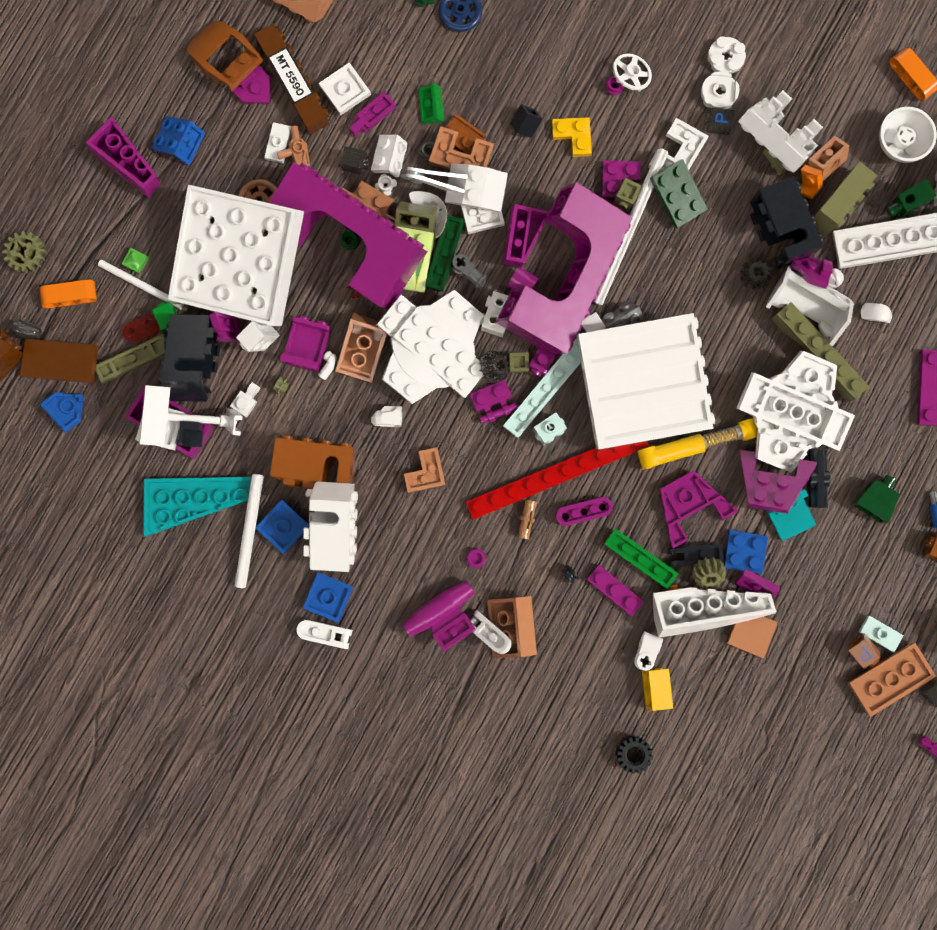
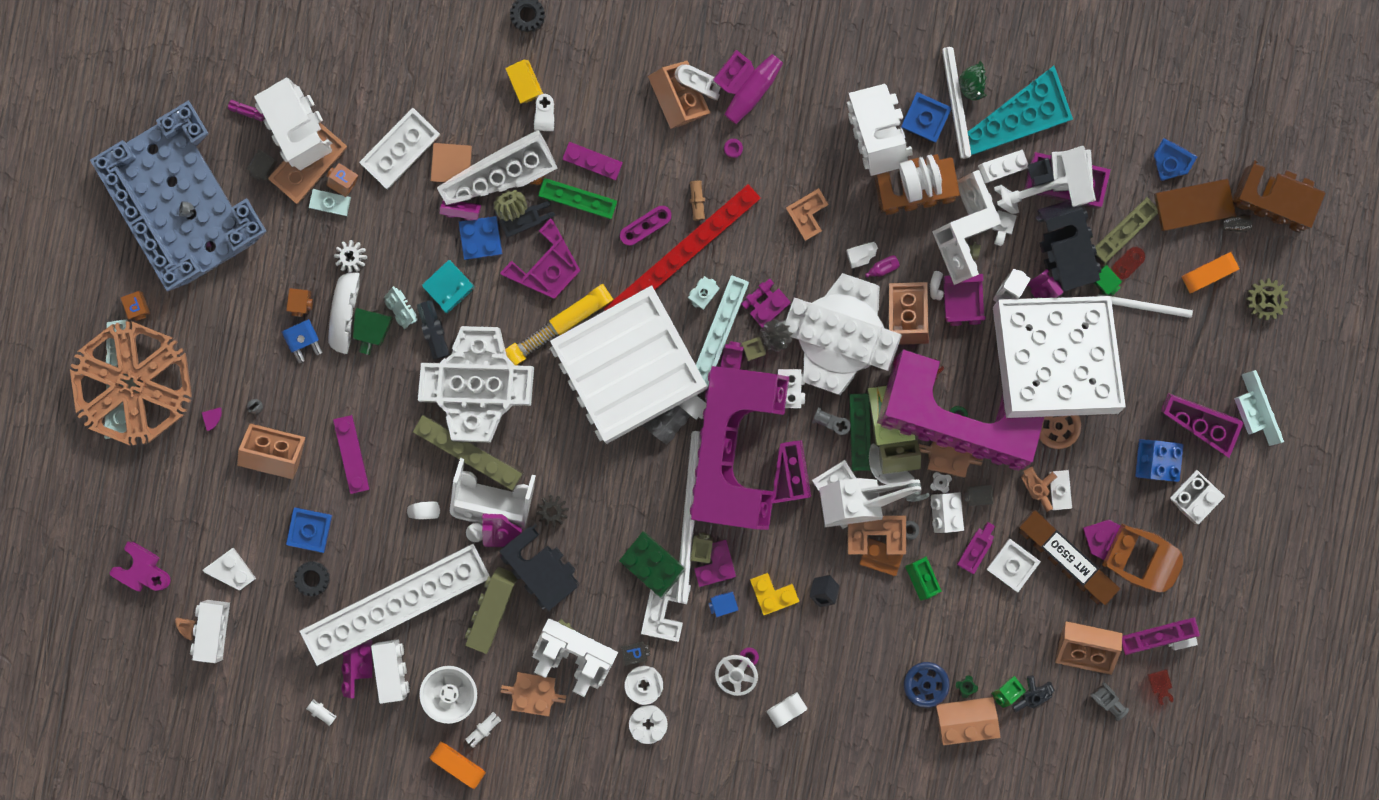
camera: 165 degrees right, 5 degrees up
(71, 155) = (1256, 409): none -> light aqua bracket
(135, 260) = (1158, 327): bright green tile -> none
(154, 91) = (1196, 497): none -> white slope
(225, 454) = (1003, 166): none -> white plate
(225, 545) = (973, 82): none -> dark green hair
(293, 403) = (953, 235): none -> white bracket
(306, 462) = (920, 178): none -> white wheel
(323, 633) = (853, 30): white plate -> none
(328, 597) = (860, 65): blue plate -> none
(371, 399) = (883, 267): none -> magenta piece
(521, 278) = (775, 427): magenta piece -> none
(570, 574) = (640, 161): black bush -> none
(595, 26) = (786, 710): none -> white axle
(623, 138) = (723, 604): none -> blue brick
(773, 490) = (476, 301): magenta wing -> none
(798, 663) = (400, 148): none -> white plate
(811, 181) = (527, 618): orange bracket -> none
(827, 112) = (533, 694): none -> nougat plate
(830, 157) = (517, 647): nougat brick -> none
(849, 517) = (404, 315): none -> light aqua hinge
(880, 98) = (483, 729): none -> white pin
(884, 574) = (344, 259): none -> white gear
(901, 723) = (293, 123): none -> white piece
(906, 515) = (341, 312): none -> white brick
(911, 199) = (419, 638): dark green torso -> none

